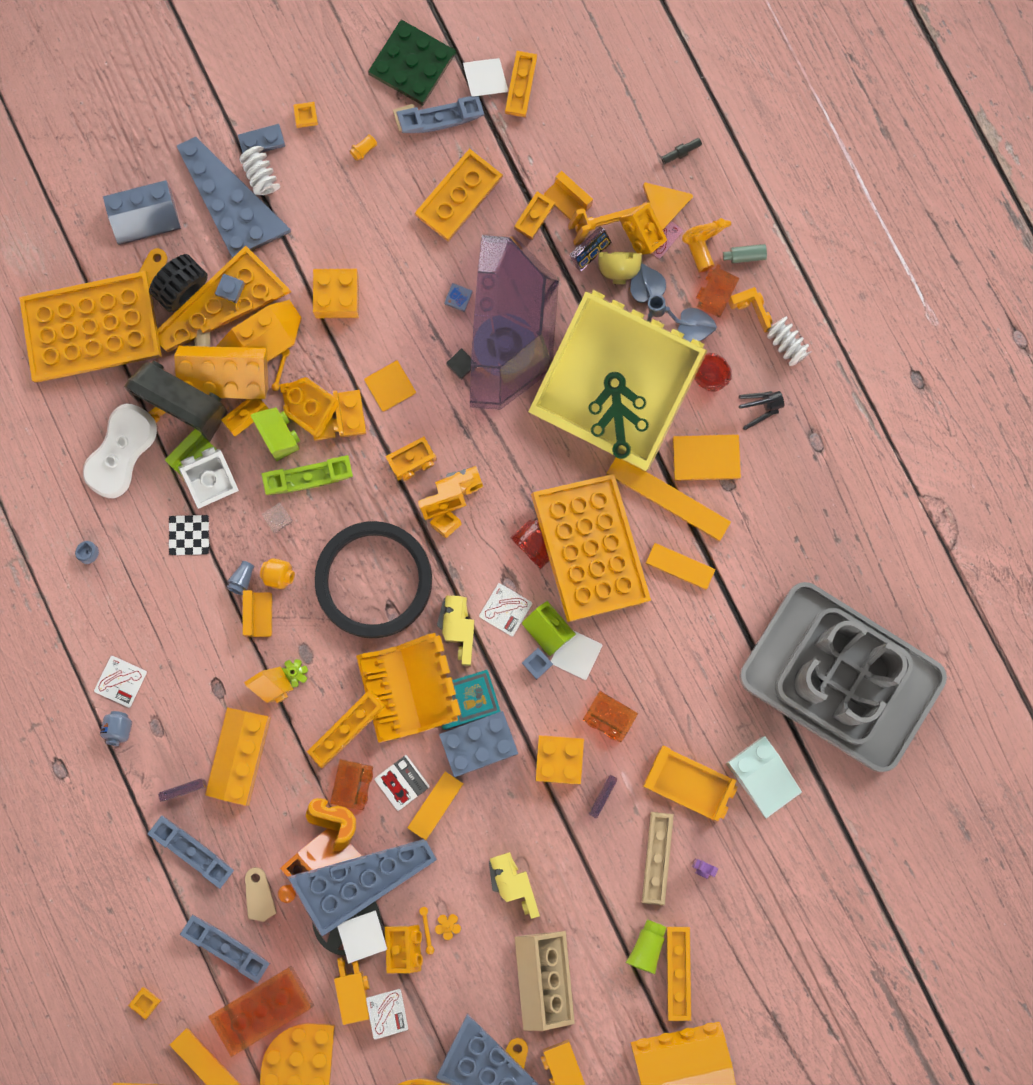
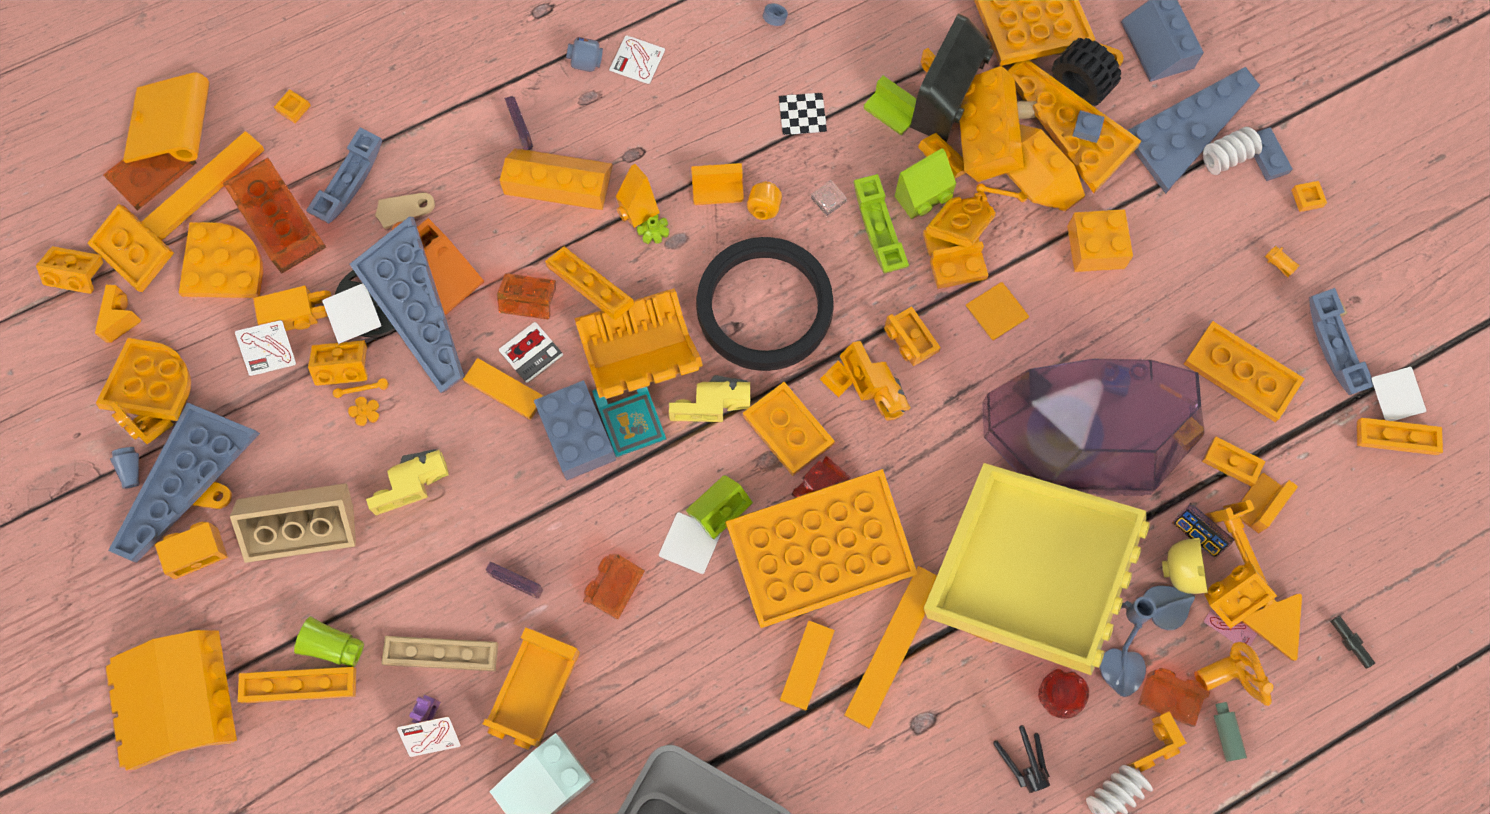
camera: 90 degrees right, 10 degrees down
(127, 437) = (903, 39): white plate -> none
(191, 851) = (454, 137): sand blue slope -> none
(208, 477) = (868, 122): white plate -> none
(240, 579) = (757, 165): sand blue cone -> none
(333, 818) = (487, 276): light orange animal -> none
(412, 62) = (1398, 310): dark green plate -> none
(486, 567) = (788, 428): none -> light orange plate
(505, 609) = (739, 456): clear sticker -> none
(537, 663) = (675, 494): sand blue plate -> none
(559, 759) = (557, 525): light orange brick -> none
(617, 411) = (995, 564): dark green plant -> none
(706, 457) = (951, 693): light orange tile -> none
(725, 864) = (428, 736): none -> white sticker

